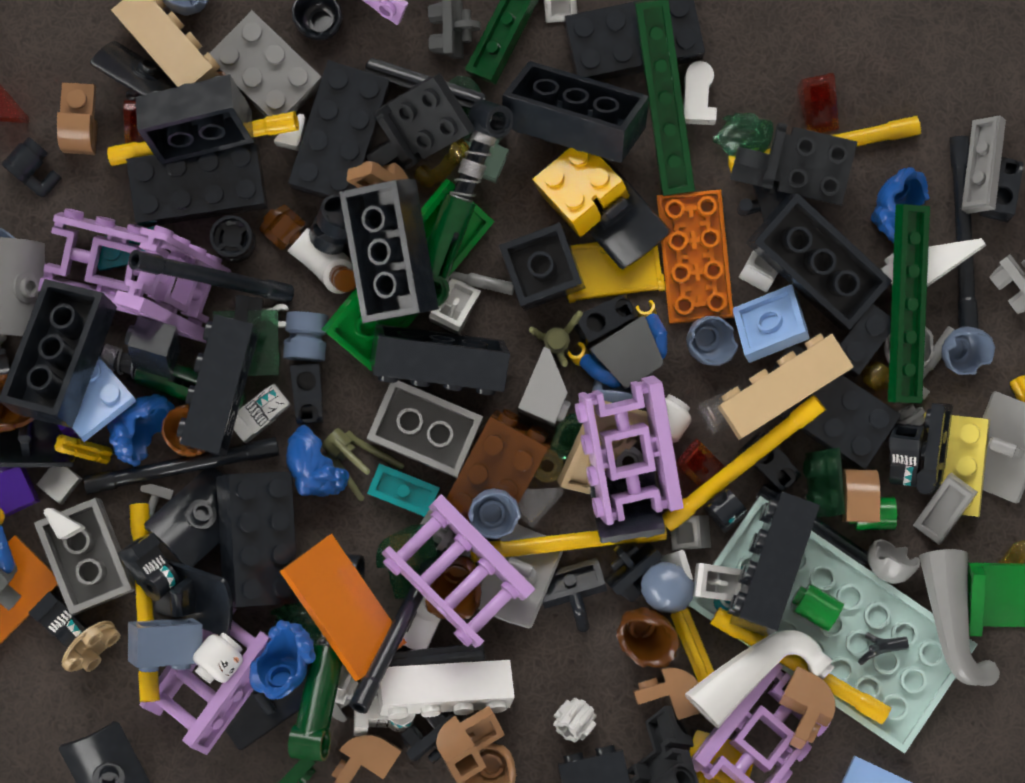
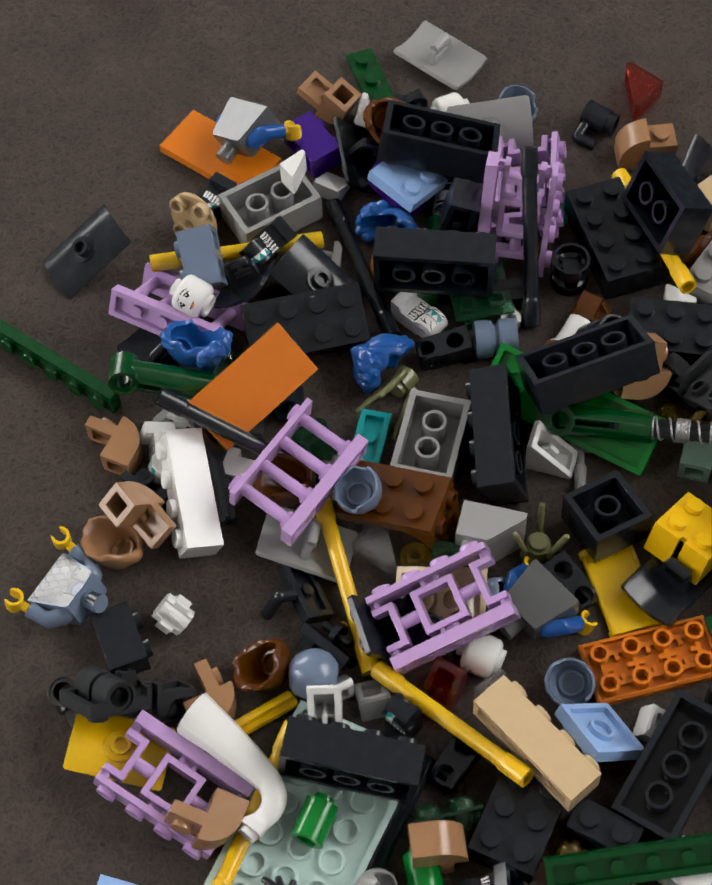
camera: 85 degrees right, 25 degrees down
(84, 450) = (361, 187): yellow axle -> none

